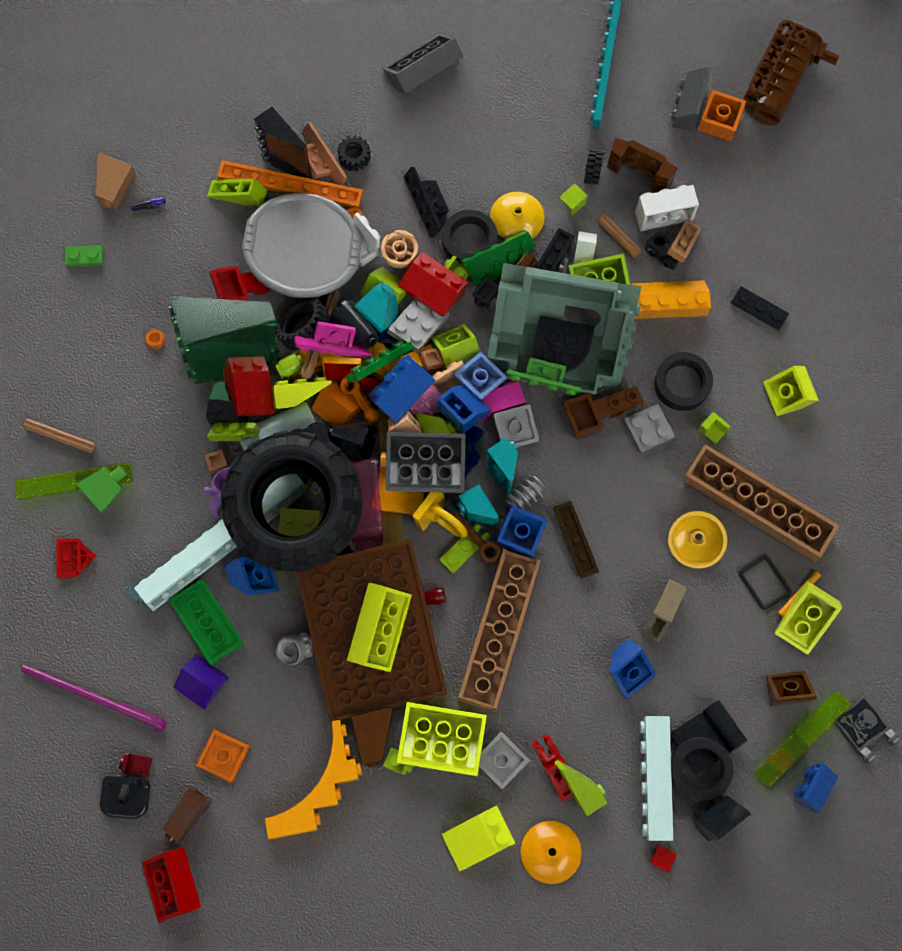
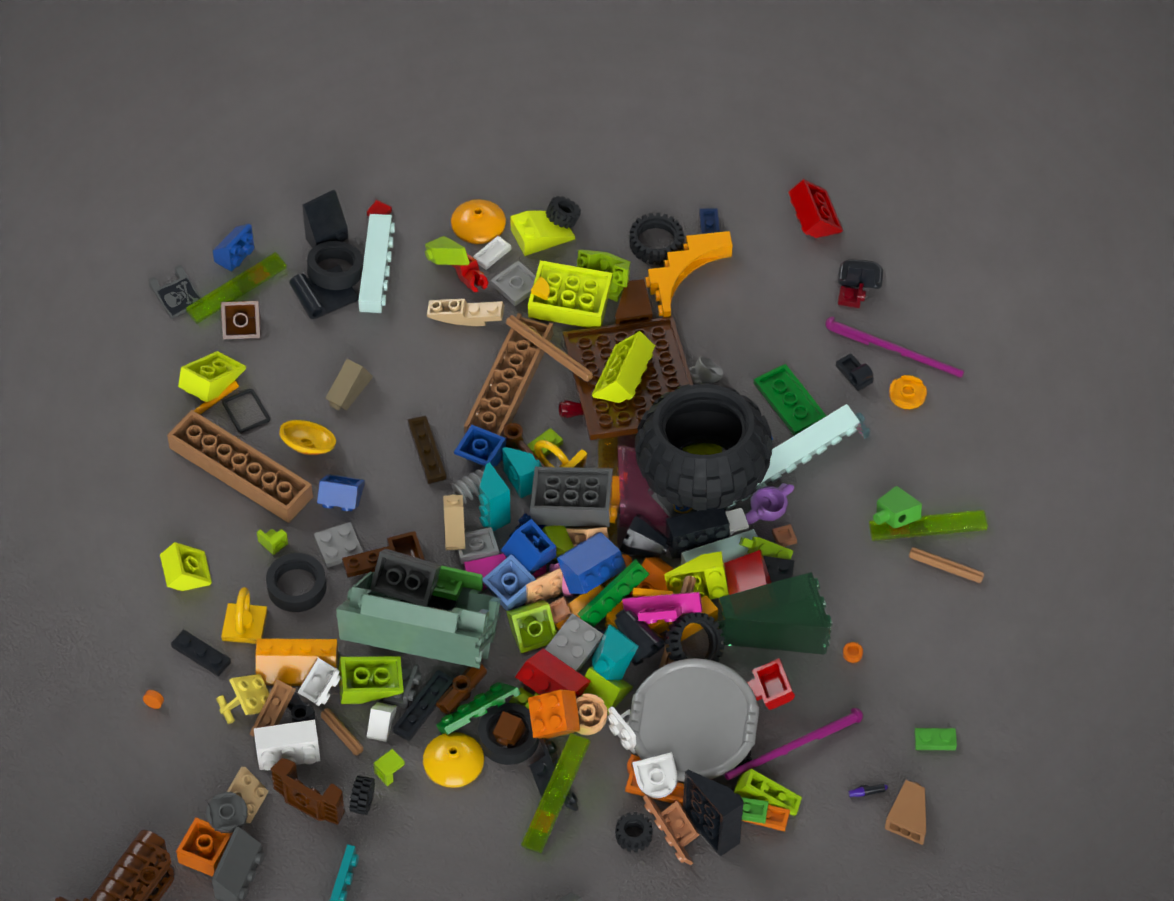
camera: 175 degrees left, 20 degrees down
(72, 557) = (924, 459): red slope -> none
(83, 642) = (907, 392): none -> light orange tile
(137, 661) = (857, 374): none -> black plate
(153, 273) = (855, 716): none -> magenta bar
(185, 815) = (801, 255): reddish brown slope -> none
(200, 681) = (794, 354): dark purple slope -> none
(223, 756) = (772, 301): orange tile -> none
(255, 167) = (754, 810): none -> bright green plate
(290, 365) = (710, 598): lime brick -> none
(291, 857) = (709, 220): none -> dark blue plate
(325, 833) = (651, 222): none -> black tyre
(335, 194) = (656, 775): none -> white tile
(421, 793) = (605, 262): none -> lime slope
(422, 175) = (555, 793): none -> clear neon green tile
(429, 236) = (554, 714): none -> orange brick
(445, 863) = (563, 212): none -> black tyre
(460, 657) = (549, 348): none -> medium nougat axle
(468, 232) = (509, 729): none -> reddish brown slope
(473, 732) = (541, 289): none -> yellow tile
(485, 292) = (496, 671): black bracket -> none
(531, 806) = (492, 252): none -> white tile
(539, 445) = (454, 522): none -> tan slope
(553, 715) = (463, 313): none -> tan slope
(579, 366) = (405, 577): none -> dark grey slope
(630, 668) = (388, 345): blue slope -> none
(642, 271) = (319, 682): none -> white bracket
(655, 485) = (340, 492): none -> slope
(697, 166) = (250, 789): none -> tan bracket
(708, 256) = (250, 693): none -> light yellow plate
(709, 130) = (226, 812): none -> dark grey tile
(725, 338) = (244, 621): none -> yellow tile
(794, 255) = (153, 699): none -> orange tile

